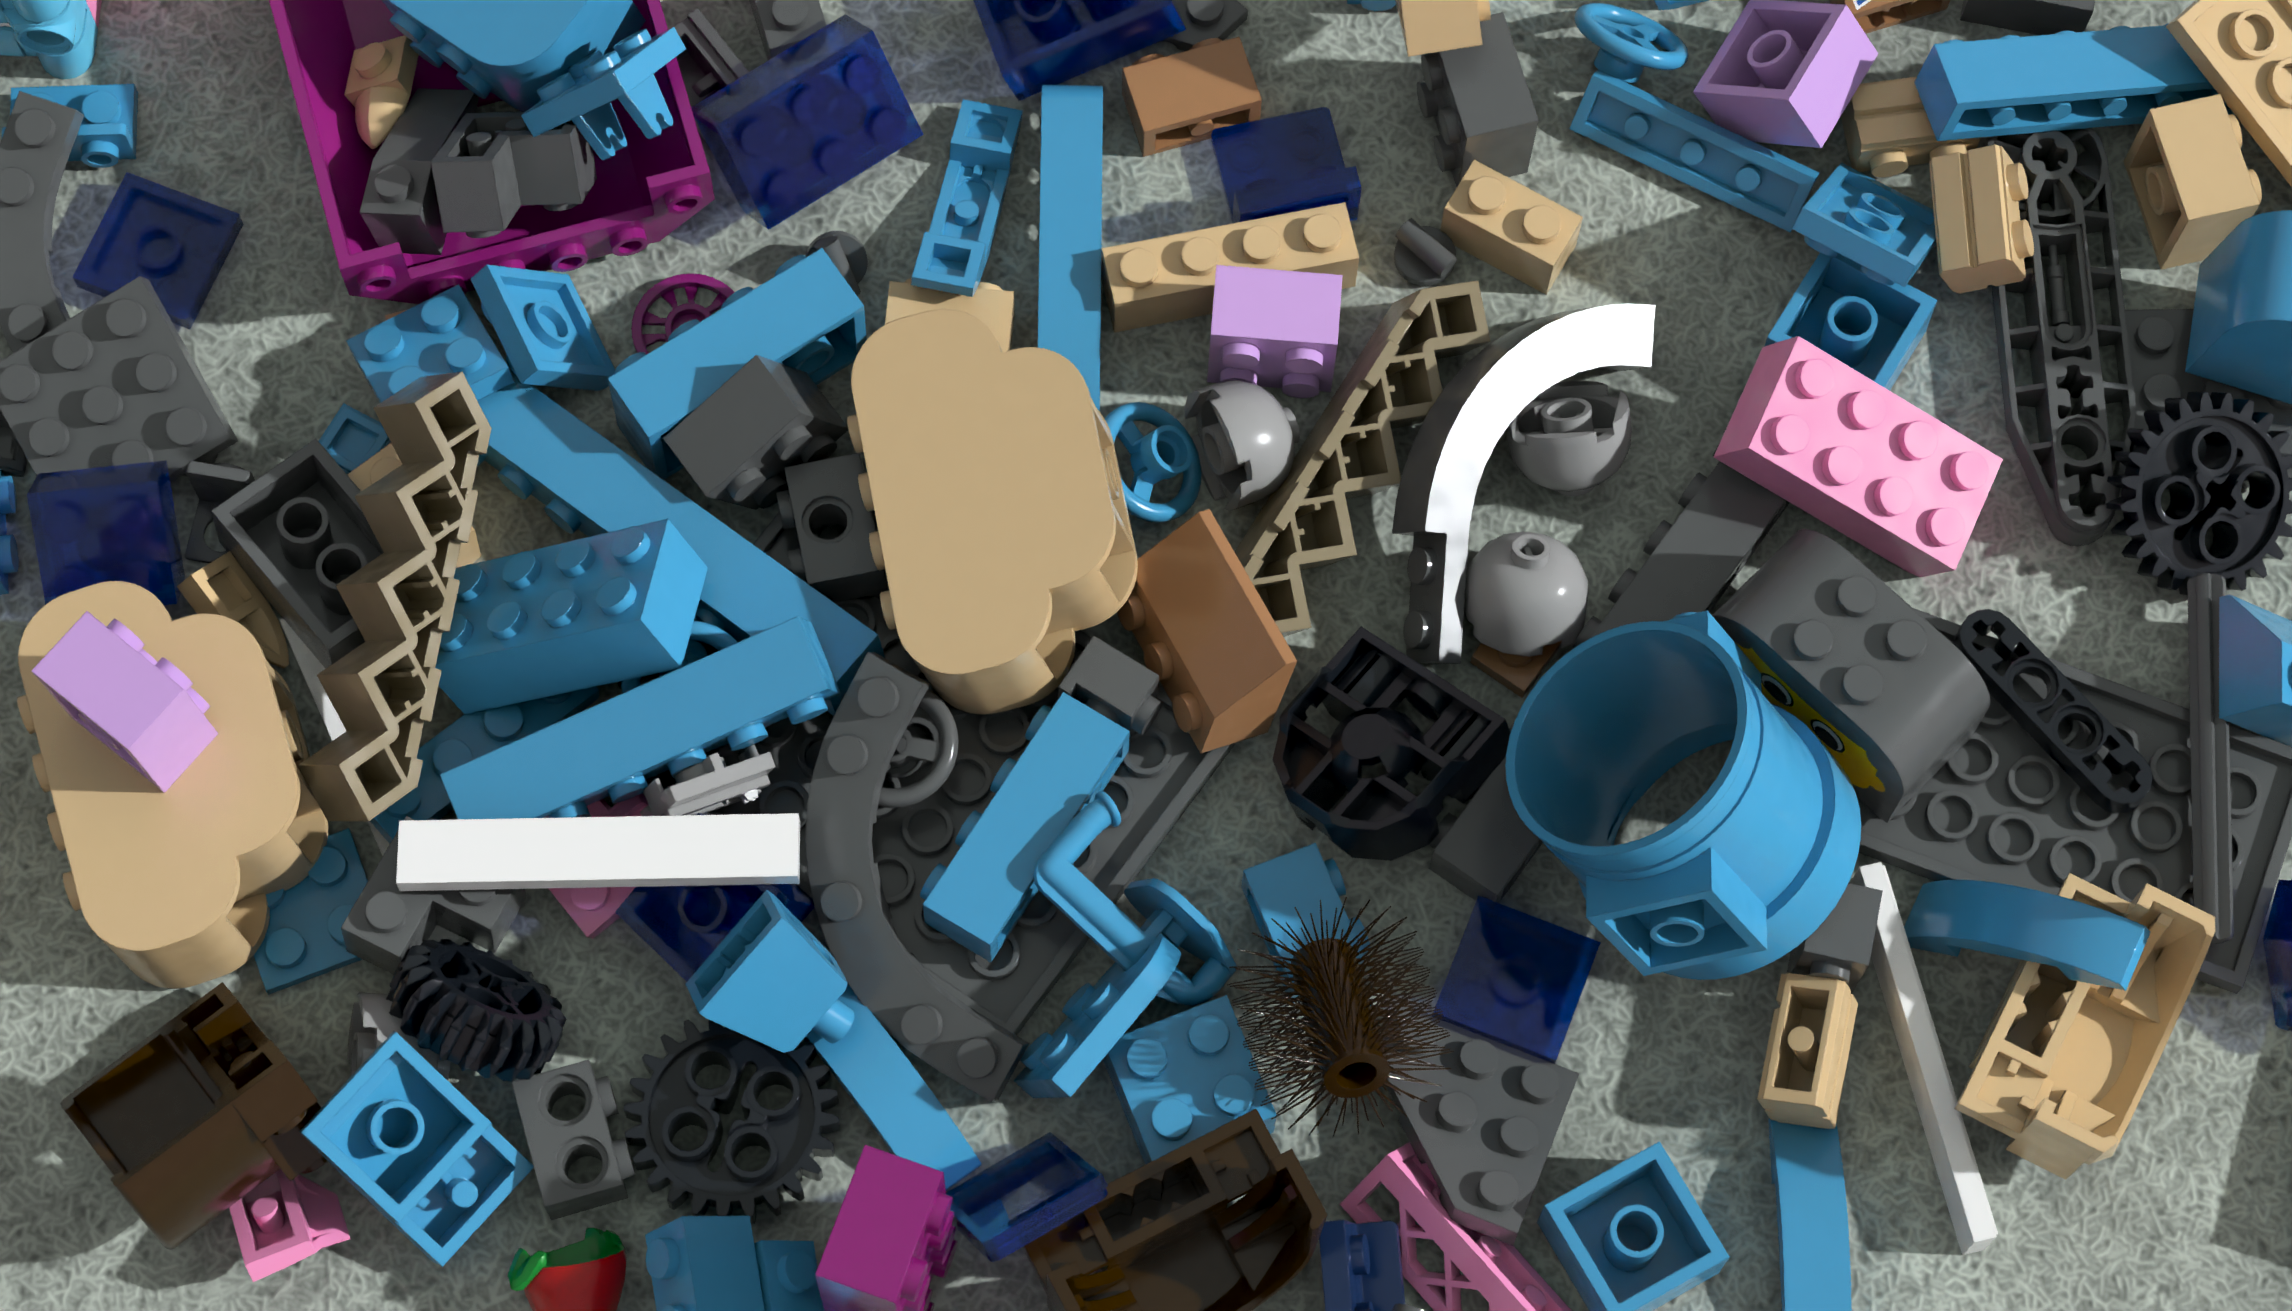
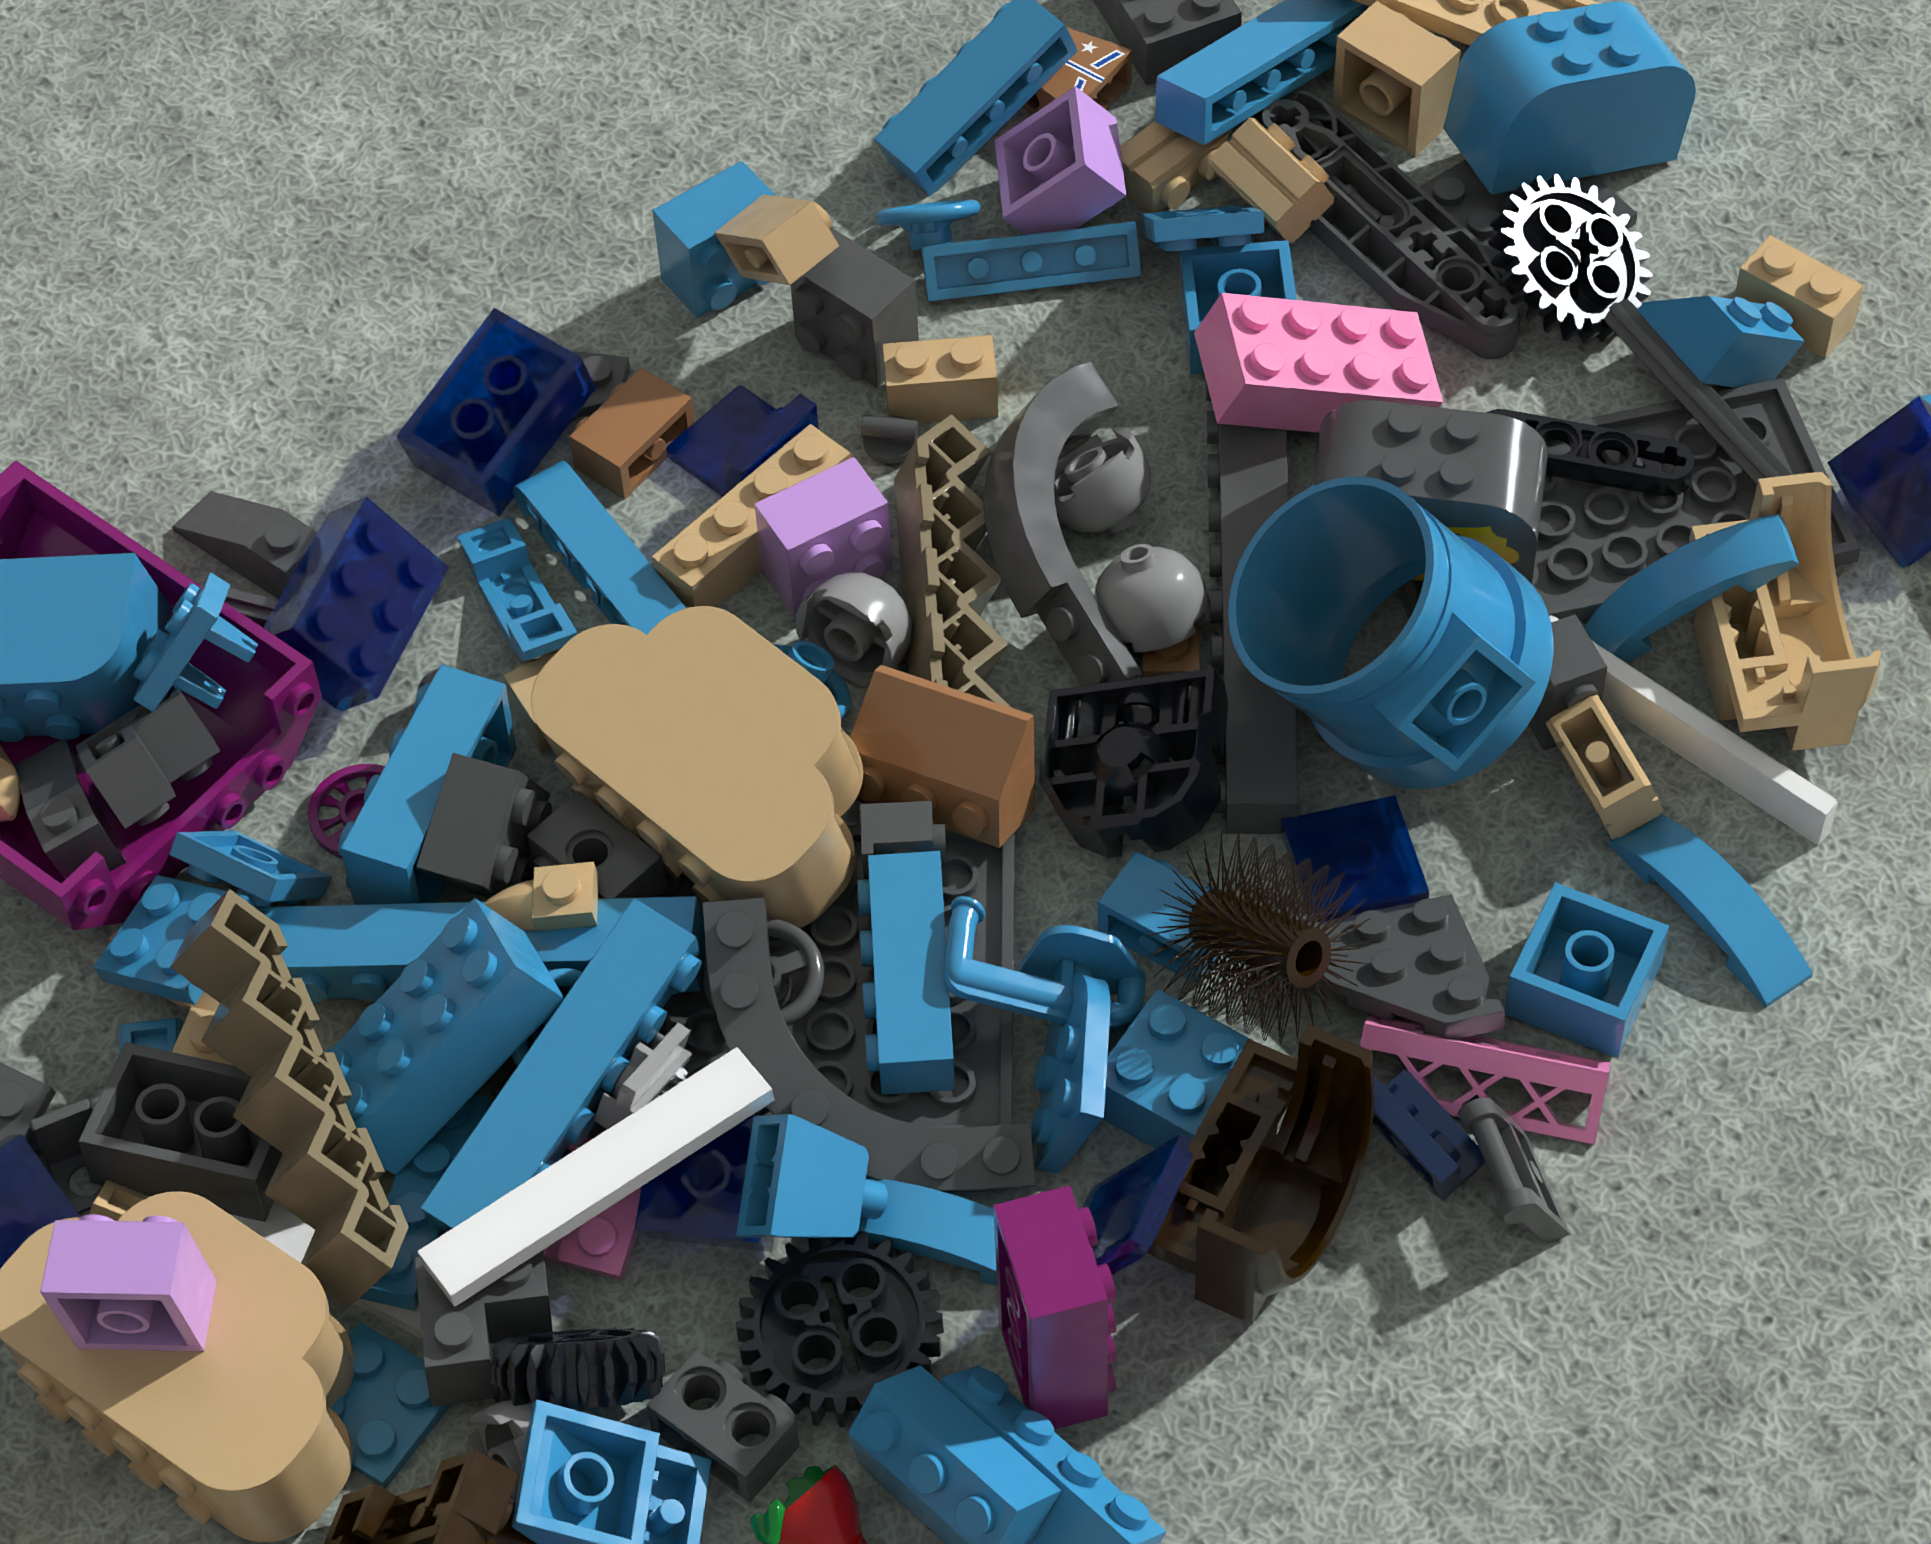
camera: 30 degrees left, 15 degrees down
(752, 548) = (553, 900): none -> tan plate

